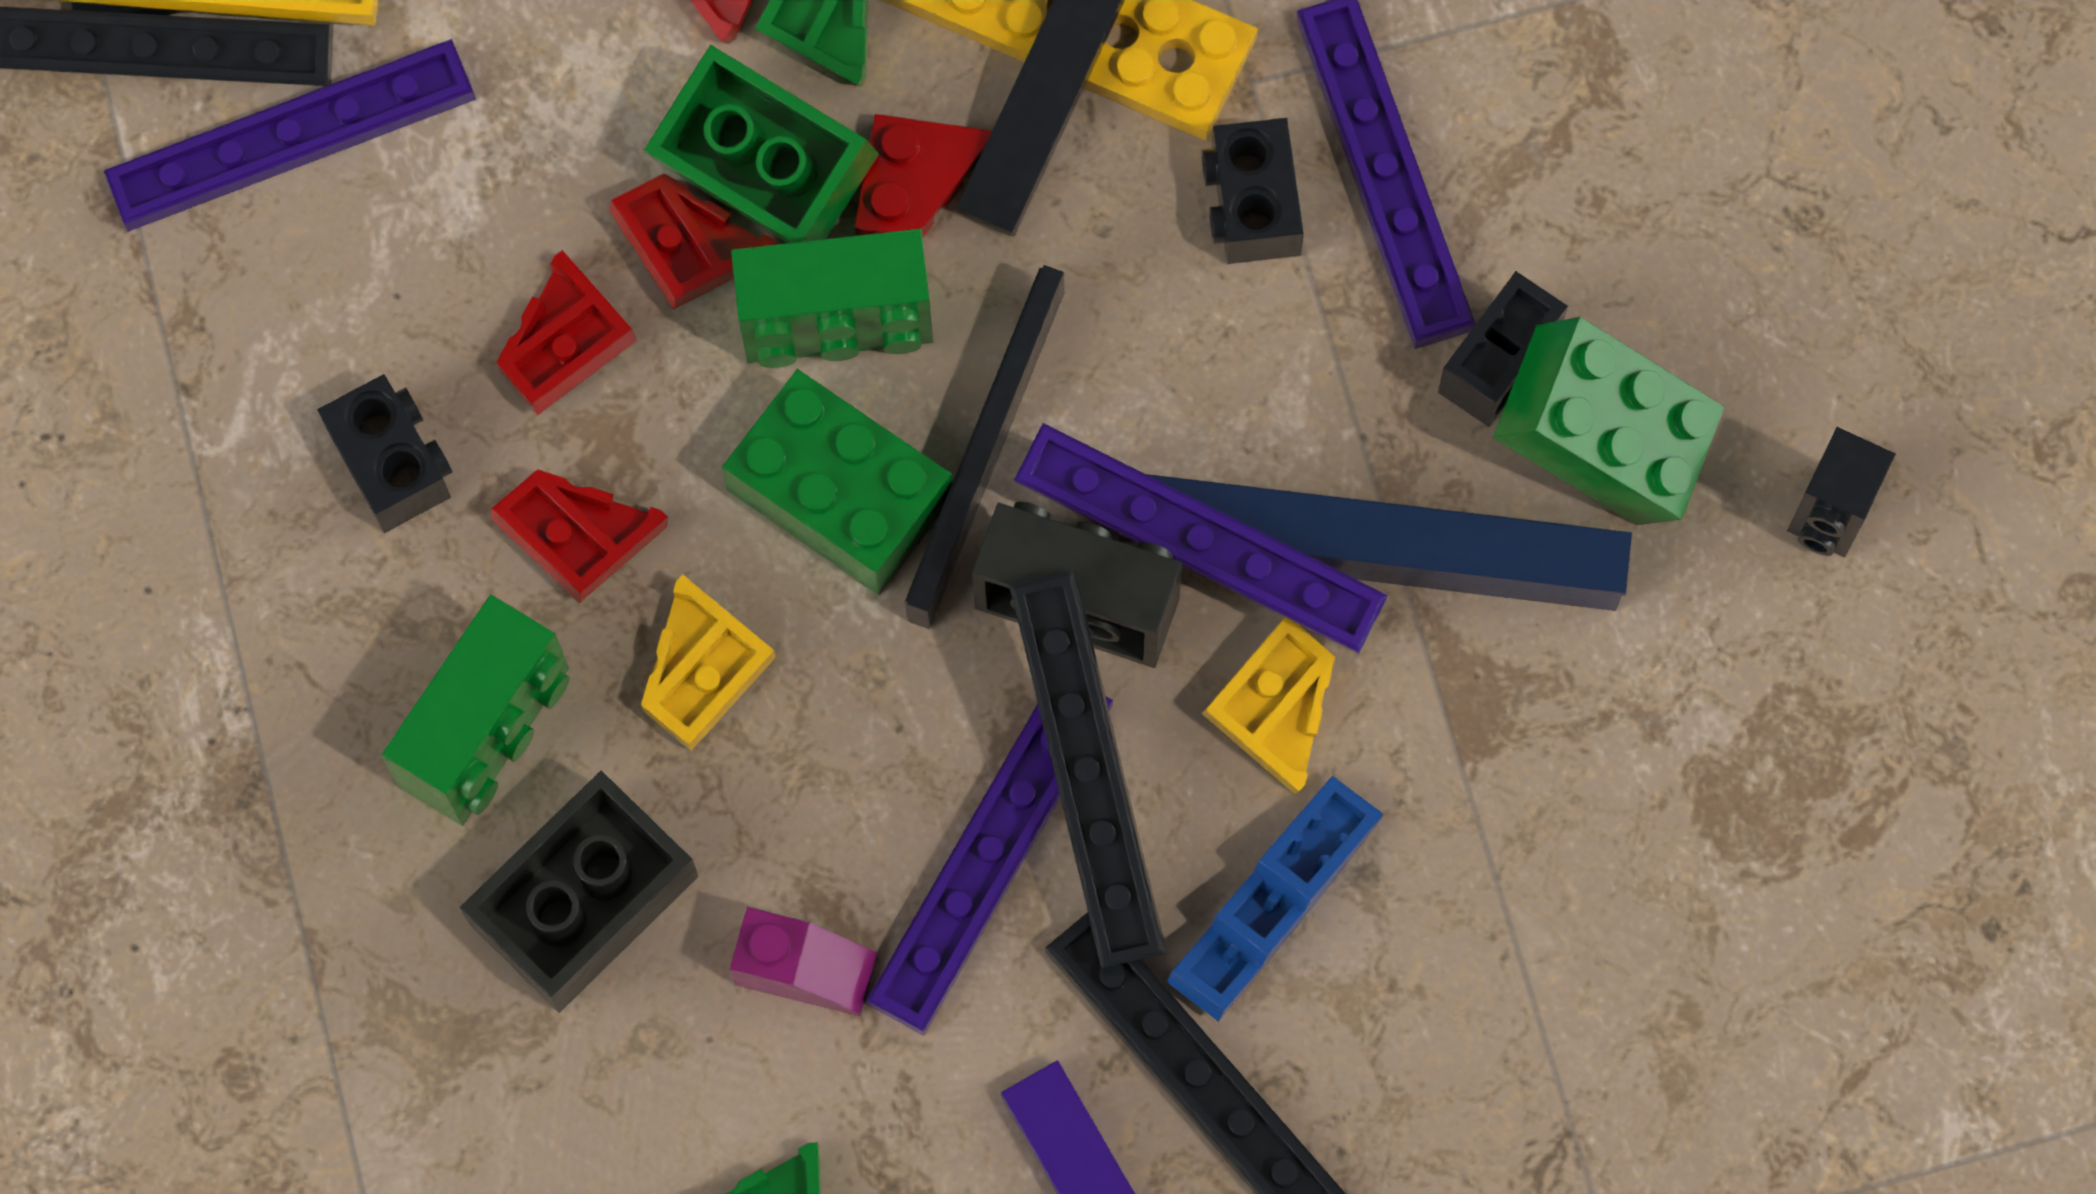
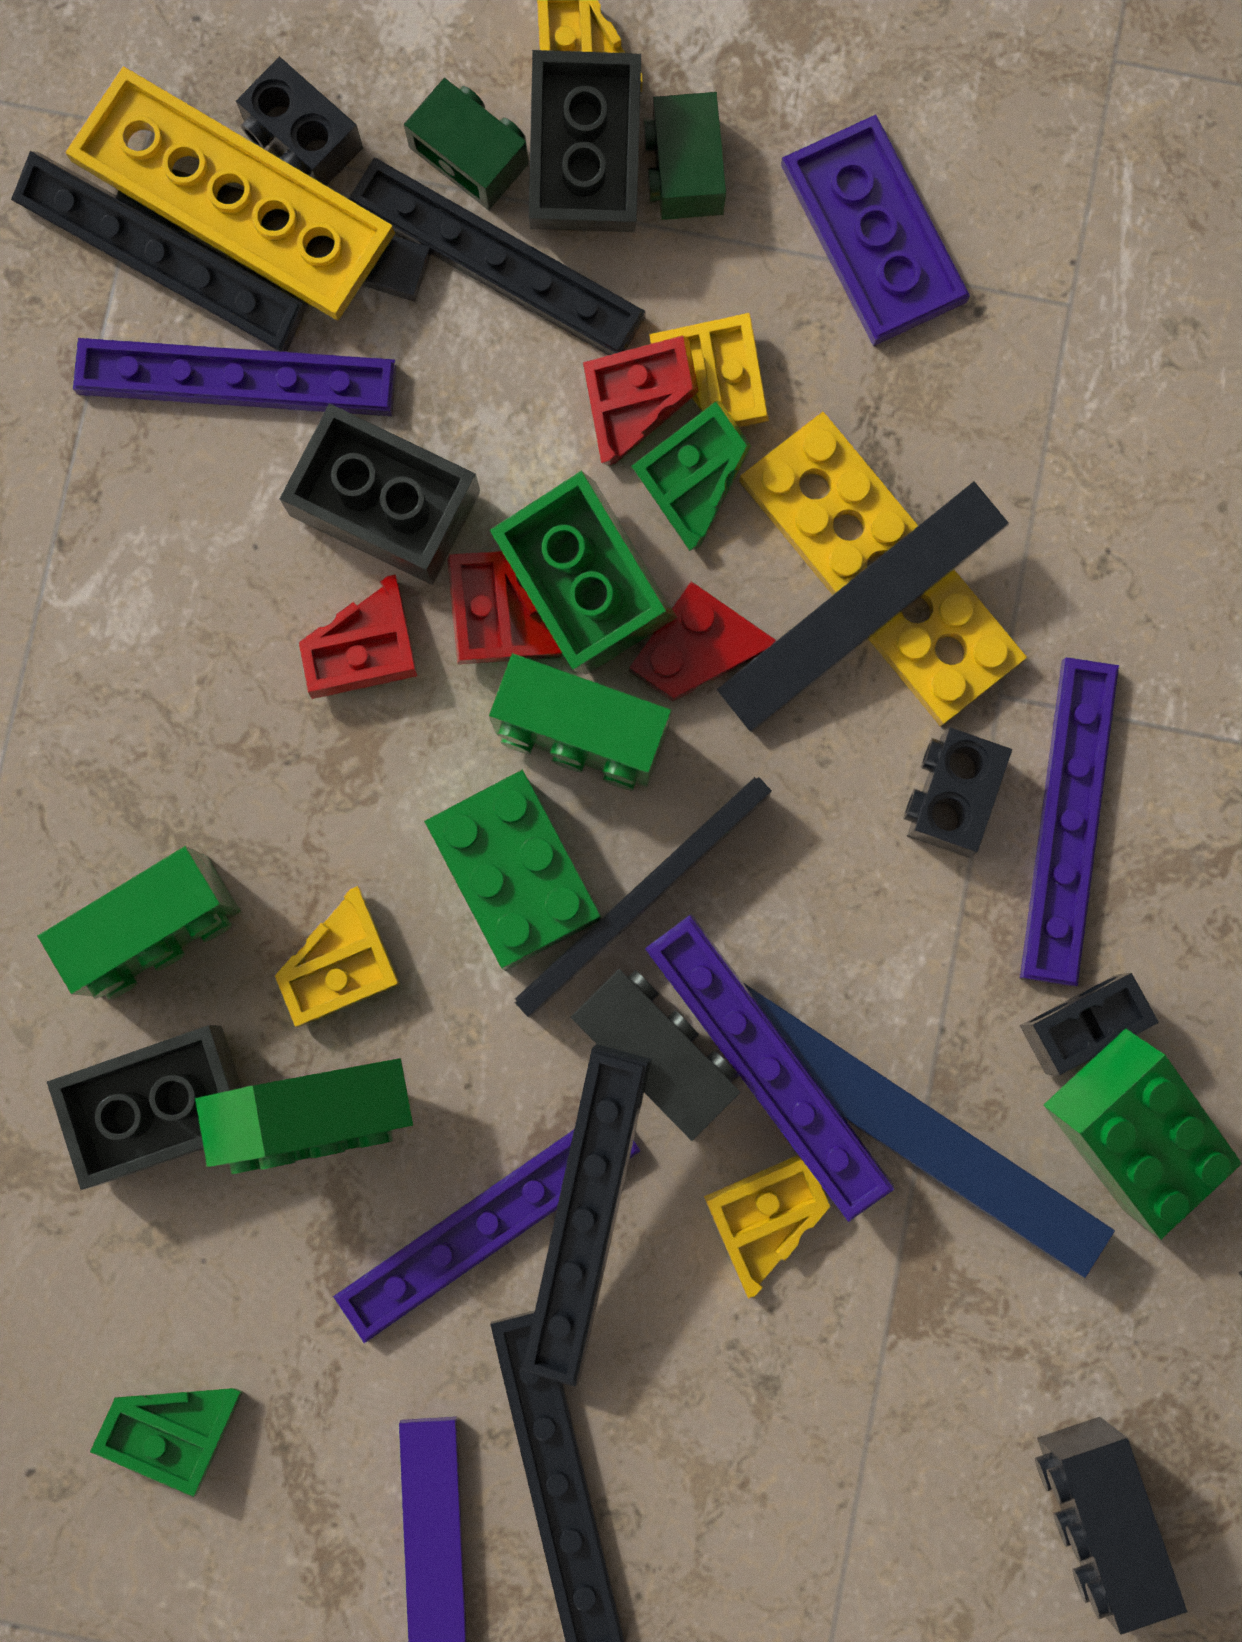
camera: 25 degrees right, 10 degrees up
(378, 456) = (165, 676): black brick -> none
(509, 173) = (380, 494): none -> pearl dark grey brick
(575, 530) = (295, 807): red wing -> none
(747, 802) = (304, 1116): none -> green brick
(801, 962) = (296, 1244): magenta slope -> none
(1275, 898) = (687, 1375): blue slope -> none
(1772, 818) = (1109, 1525): none -> black brick

